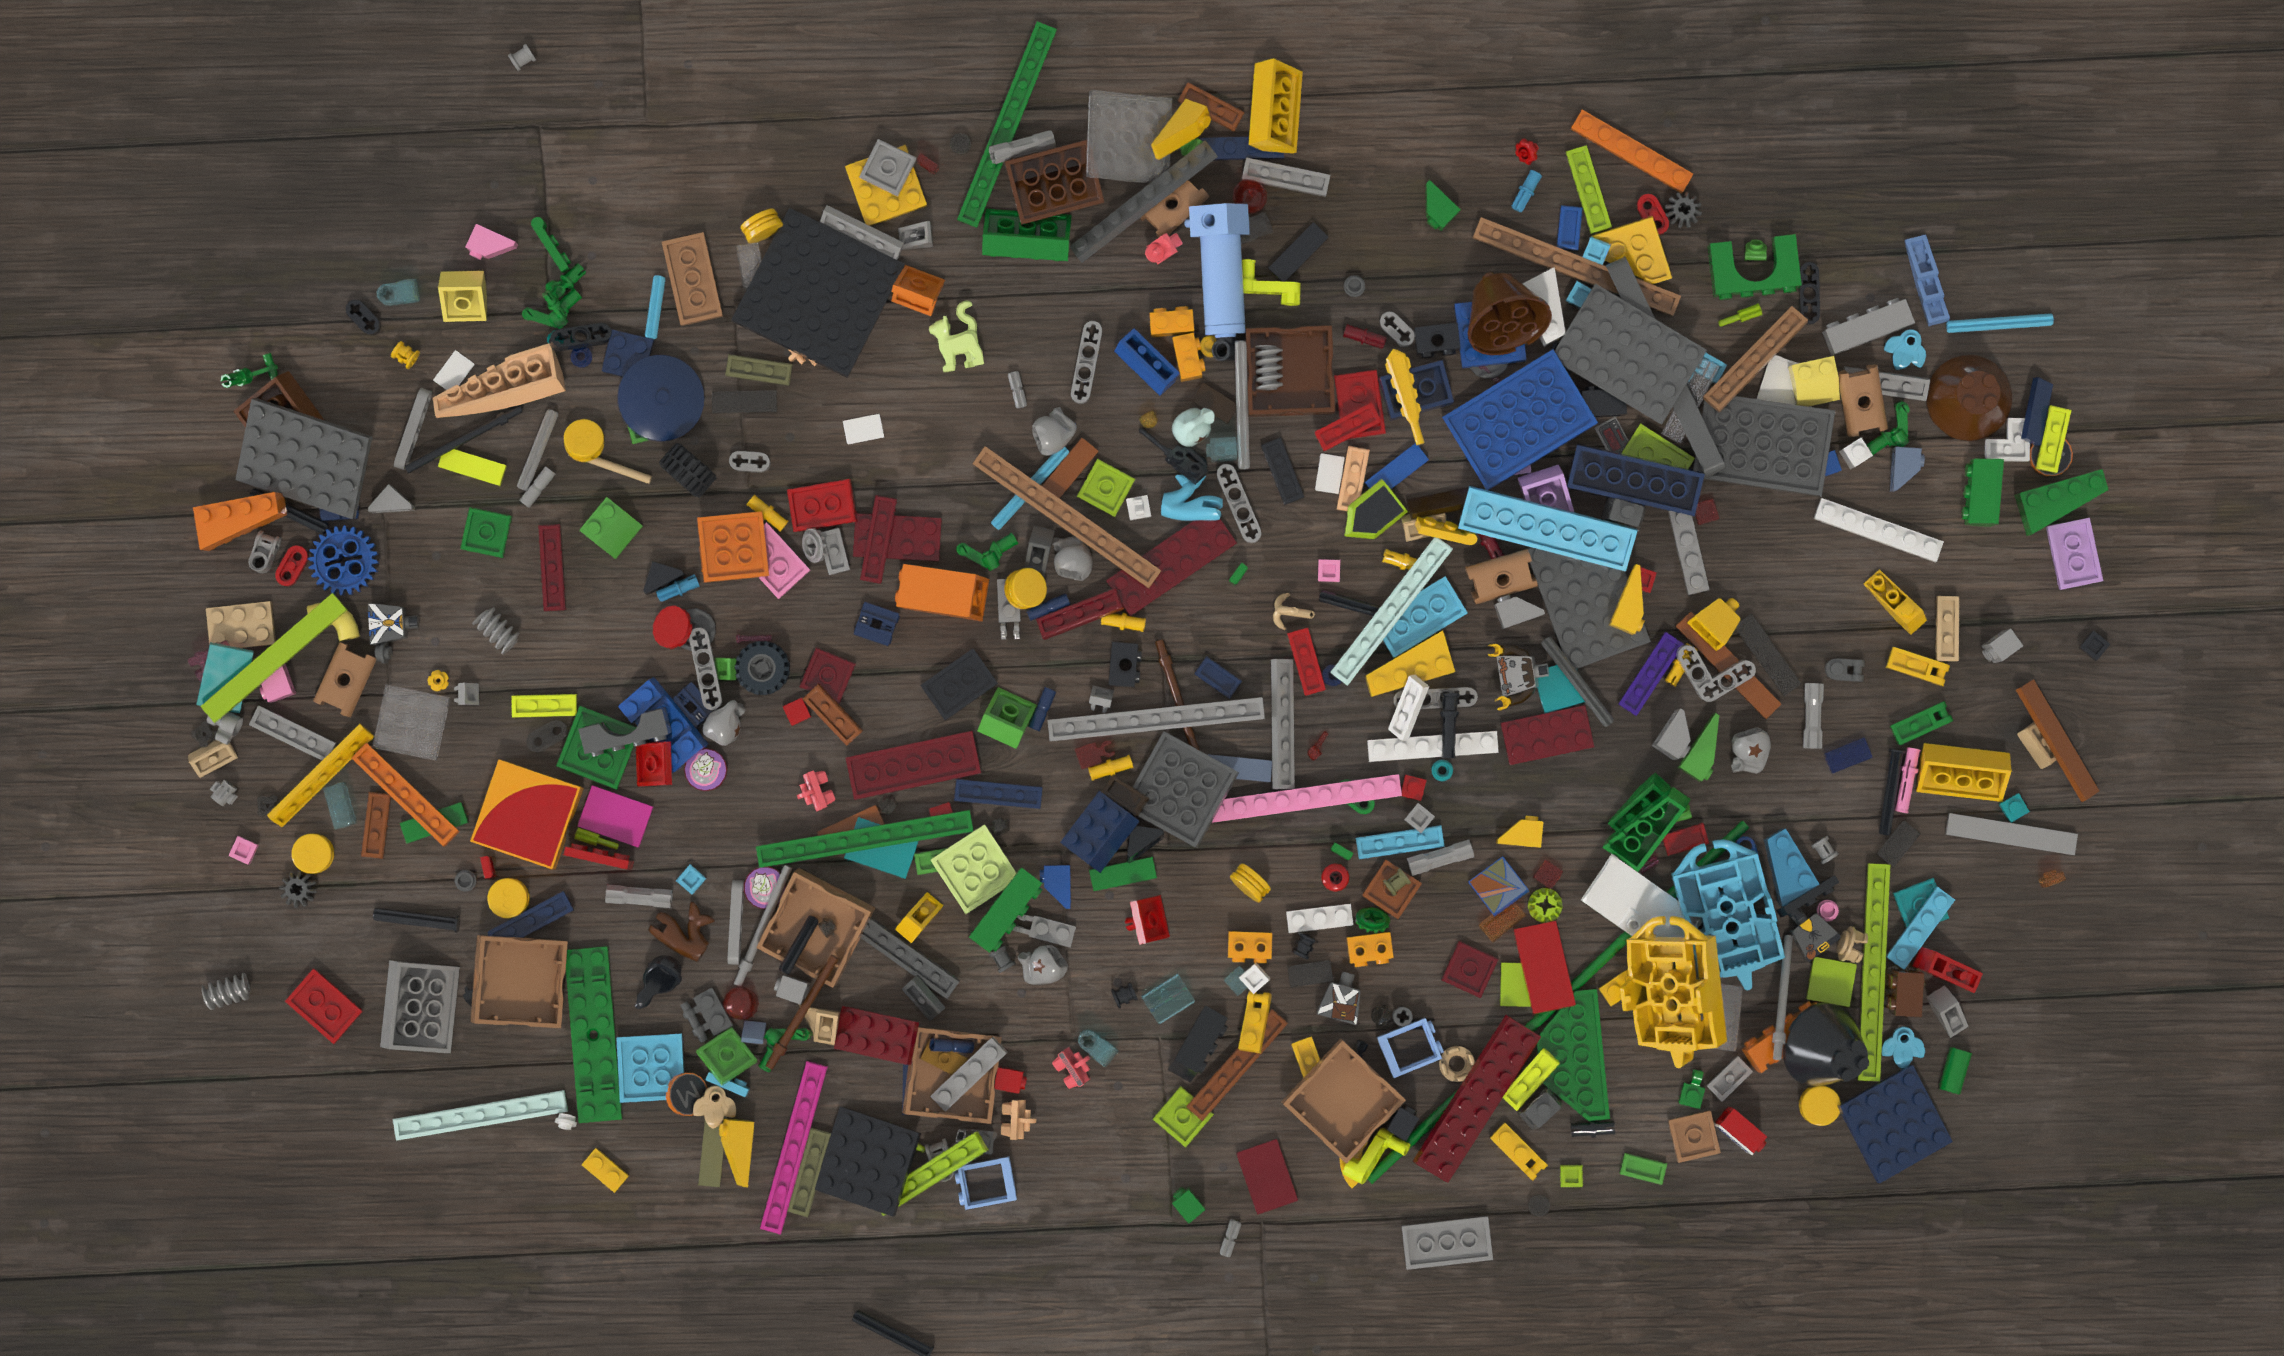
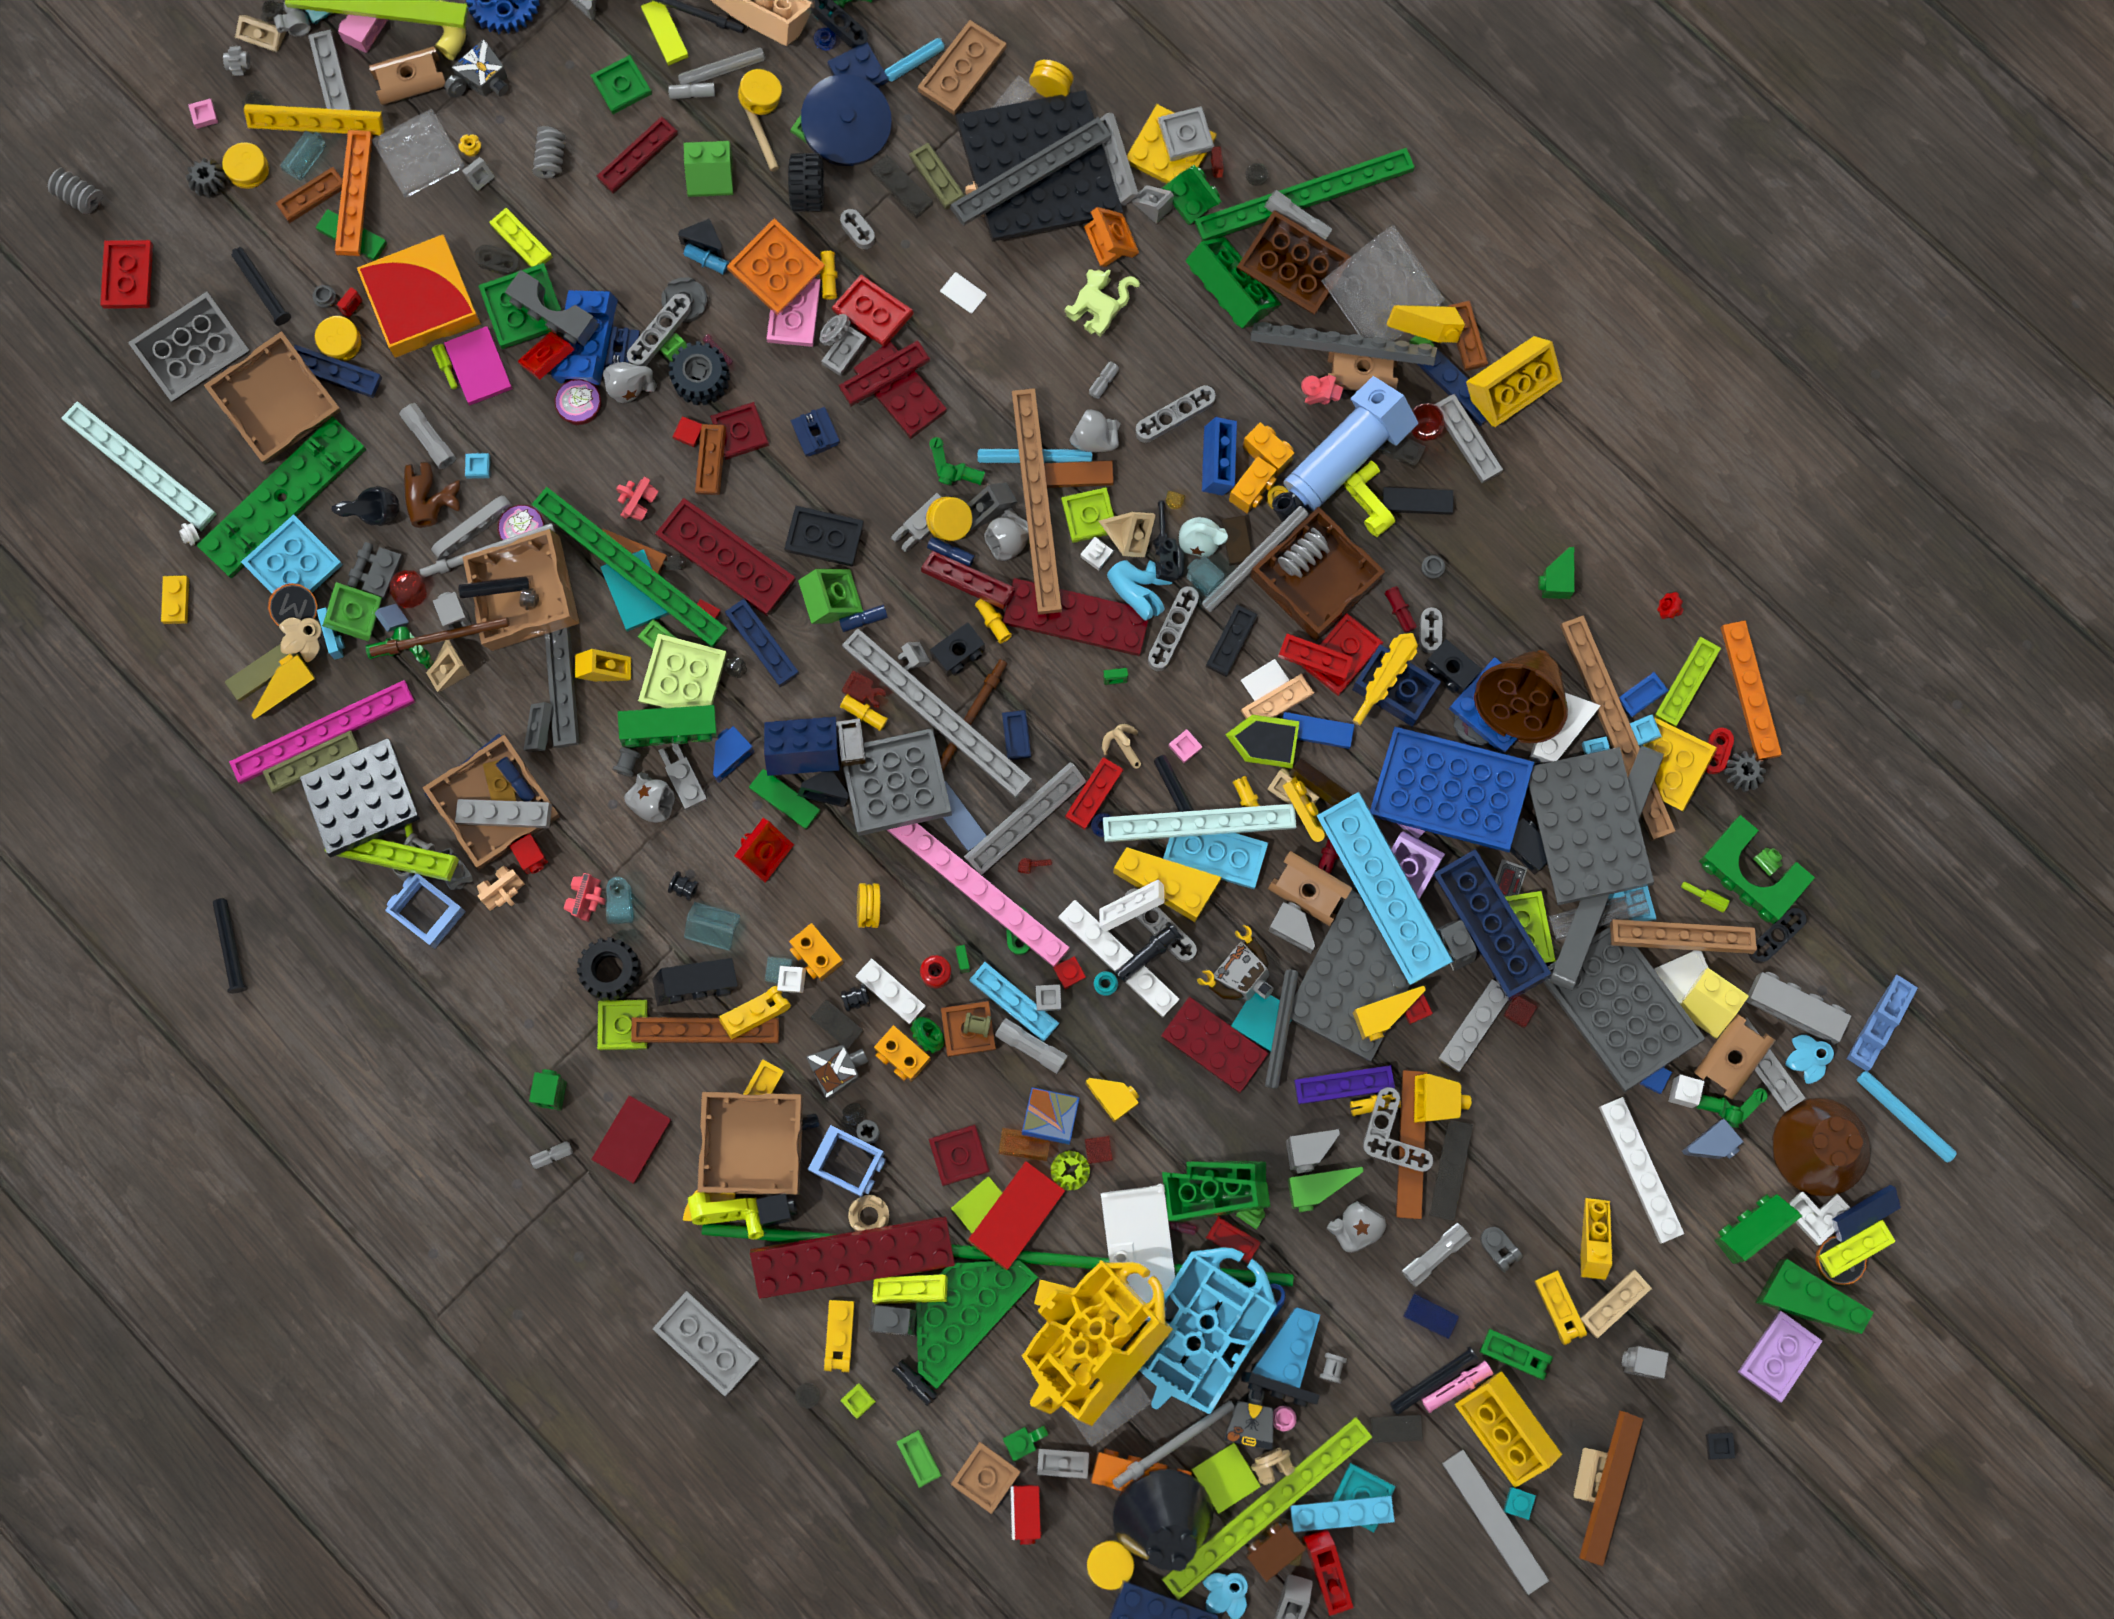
camera: 45 degrees right, 10 degrees down
(599, 856) = (432, 375): red plate -> none
(672, 627) = (670, 278): red tile -> none
(823, 305) = (1030, 171): none -> dark grey plate
(876, 1035) = (472, 713): dark red plate -> none
(937, 206) = (1192, 193): none -> green bracket
(942, 592) = (888, 459): orange slope -> none
(1147, 473) = (1130, 532): none -> tan slope
(1158, 1093) = (600, 951): none -> black tyre
(1526, 191) = (1638, 634): dark azure axle -> none
(2051, 878) = (1490, 1592): clear orange plate -> none

